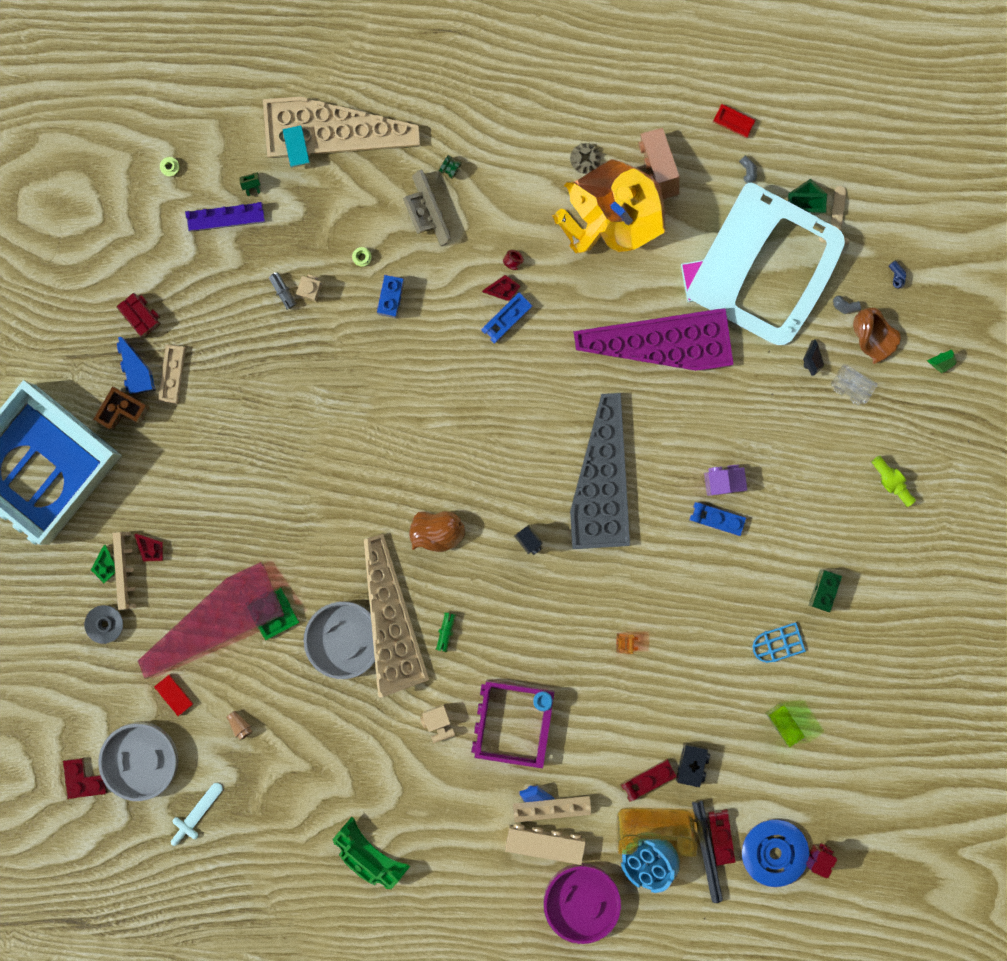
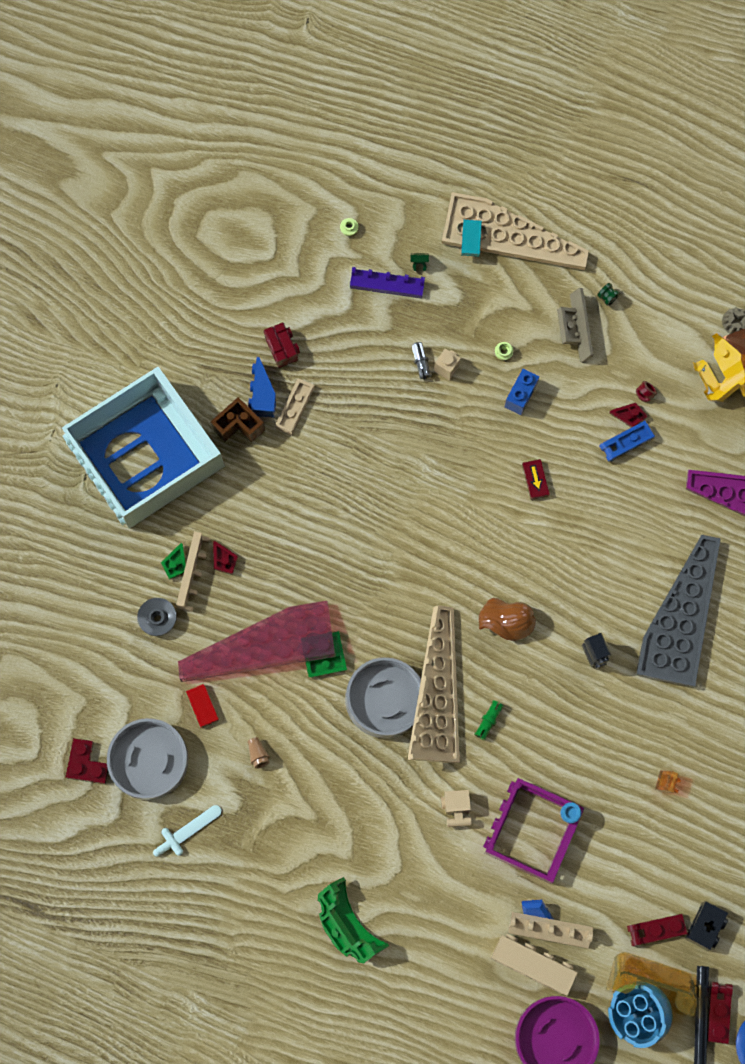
camera: 20 degrees right, 15 degrees down
(427, 381) = (535, 479): none -> dark red tile

